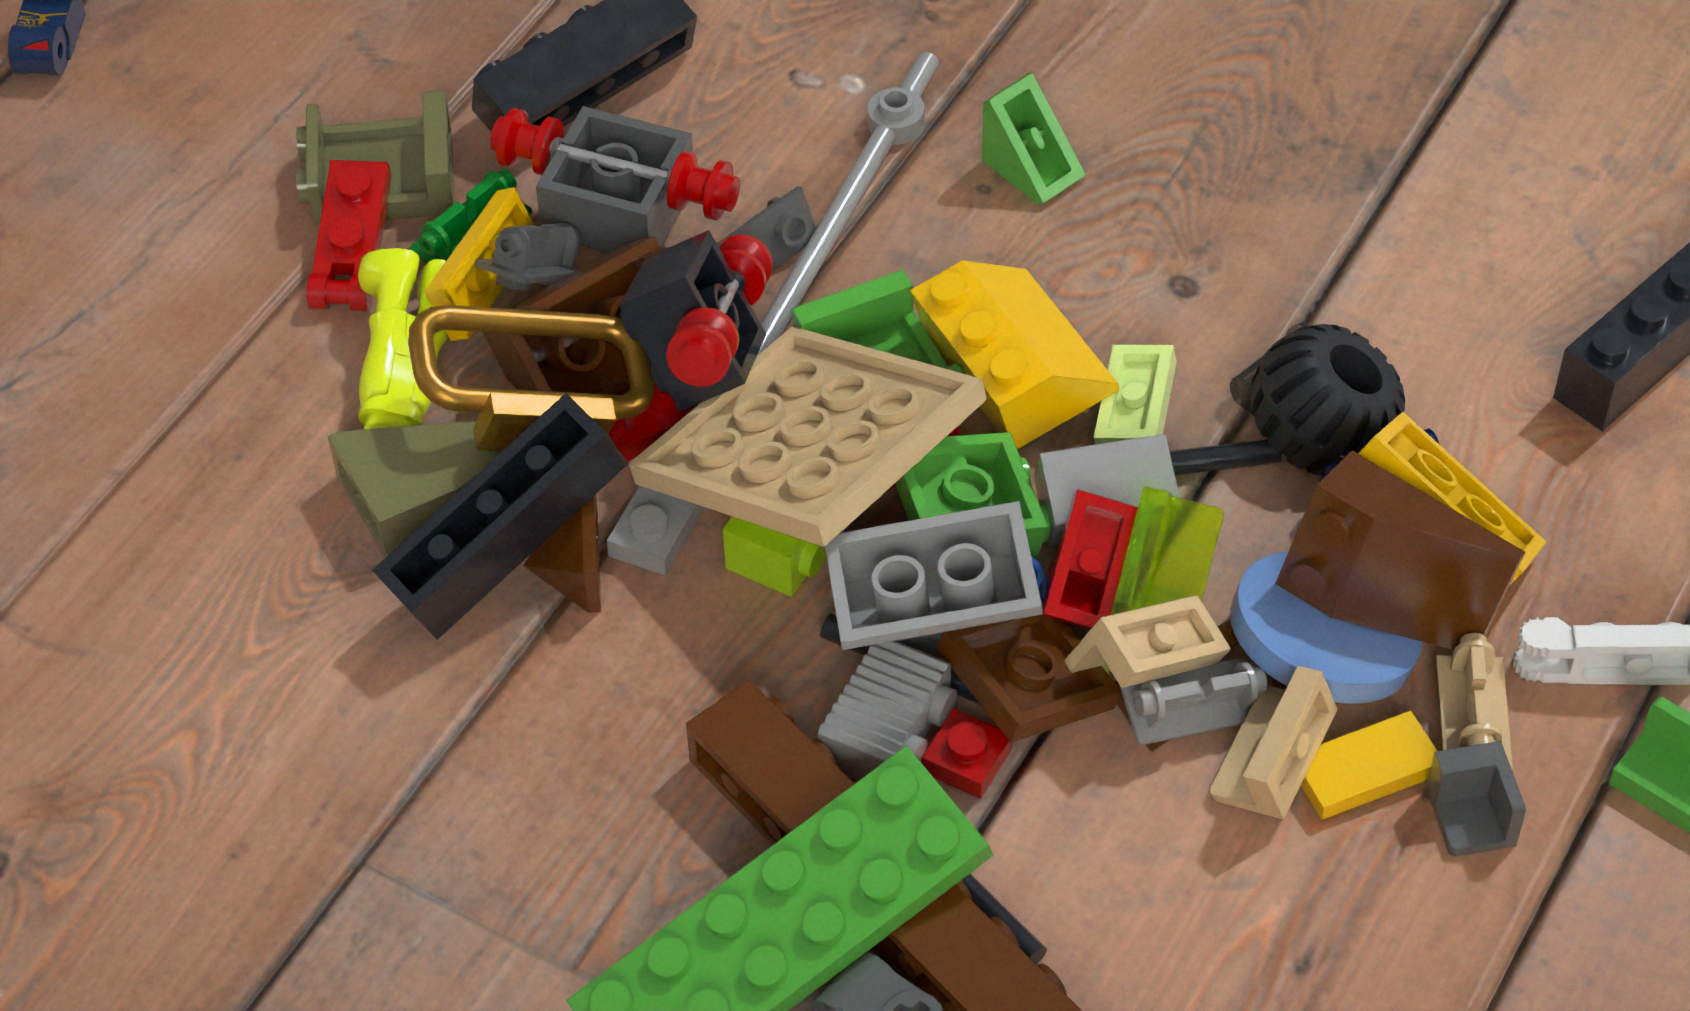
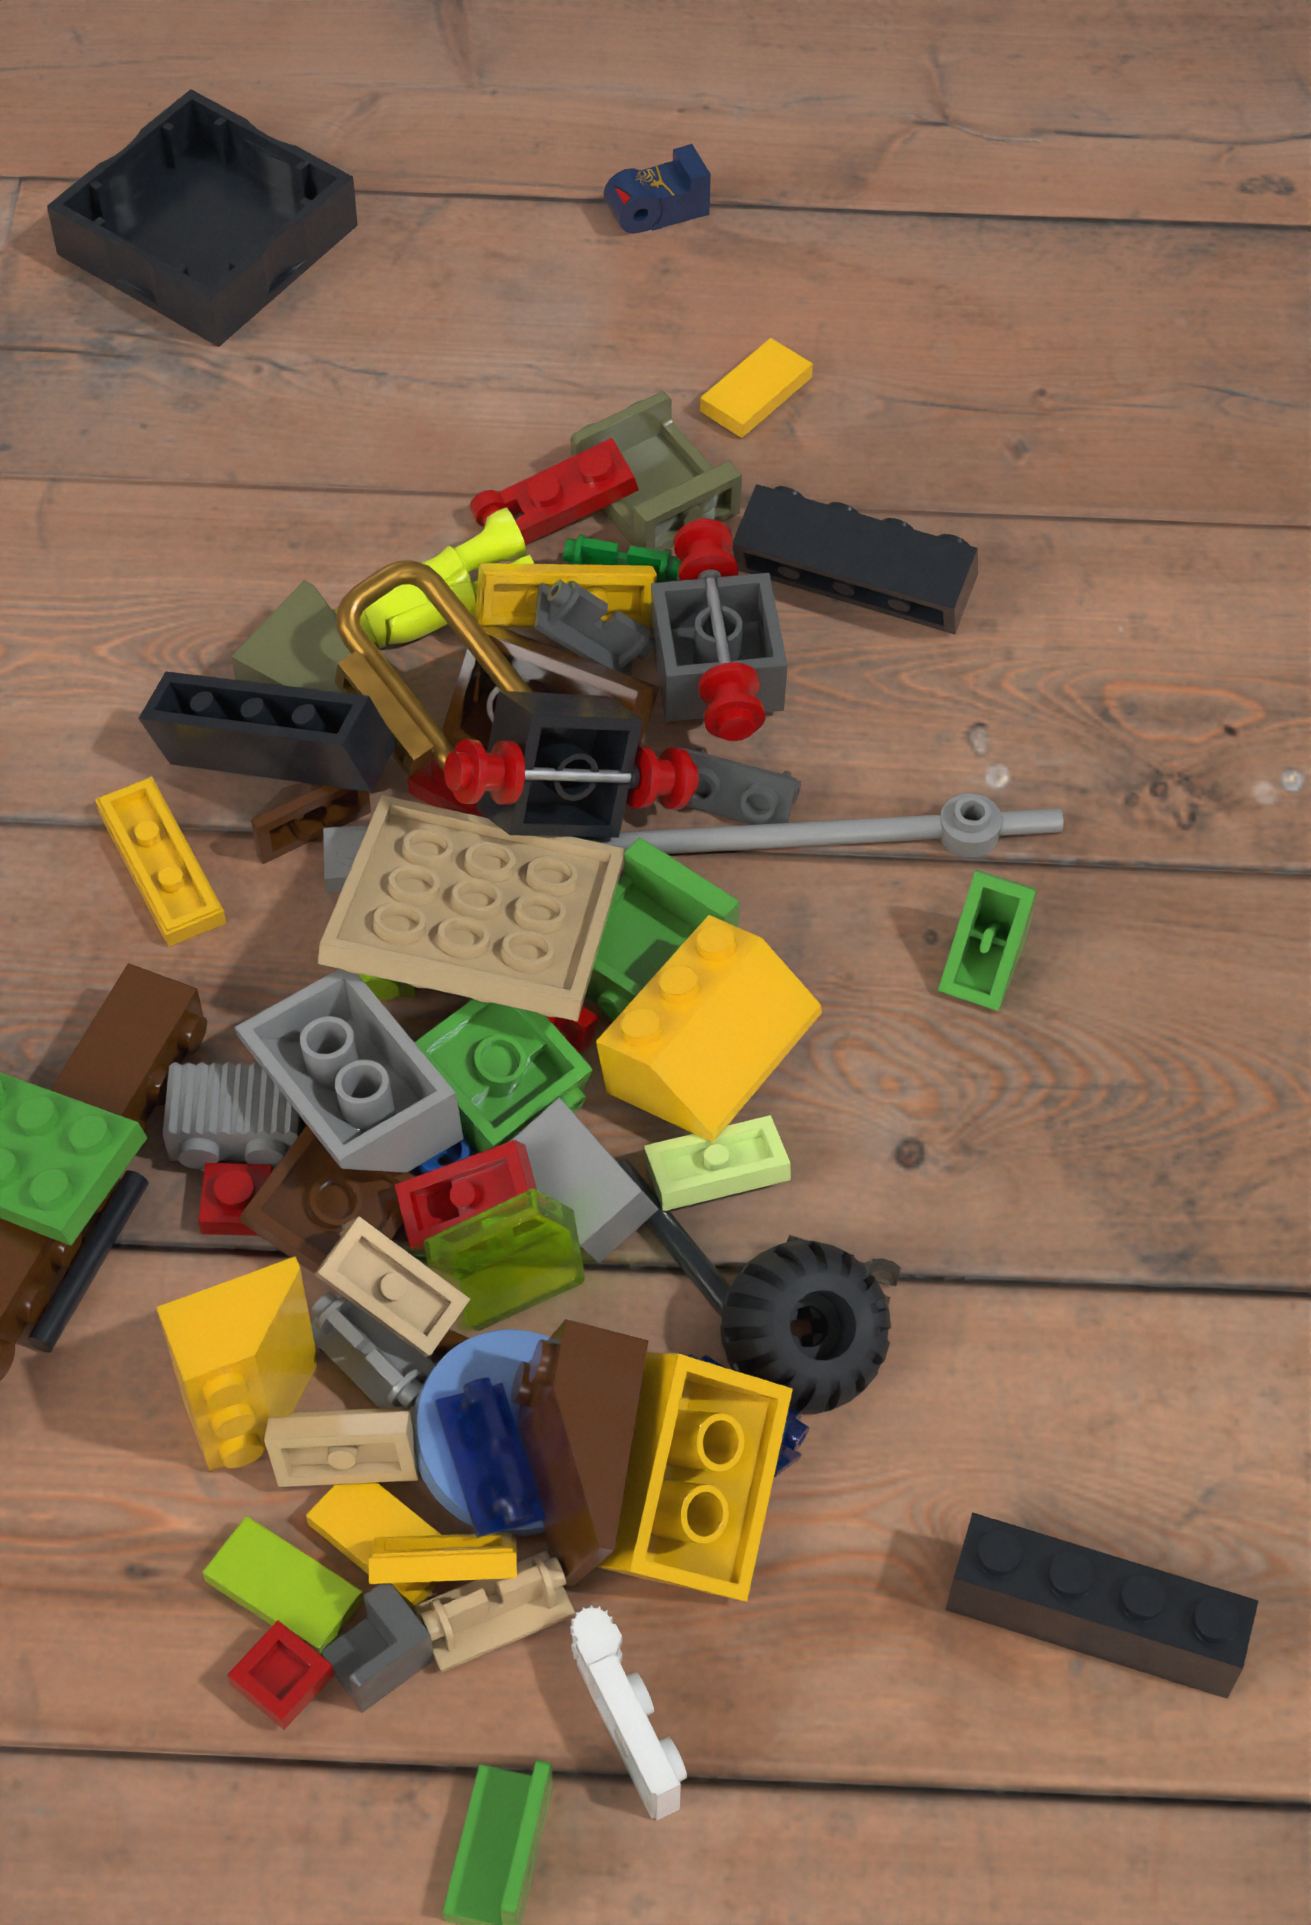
camera: 60 degrees right, 5 degrees up
(325, 59) = (756, 387): none -> yellow tile
(549, 684) = (160, 861): none -> yellow tile
(1198, 769) = (241, 1358): none -> yellow slope
(1338, 625) = (489, 1458): none -> clear blue hinge
(1378, 853) = (283, 1584): none -> lime tile
(1431, 709) = (442, 1558): none -> yellow tile
(1468, 878) = (281, 1674): none -> red plate

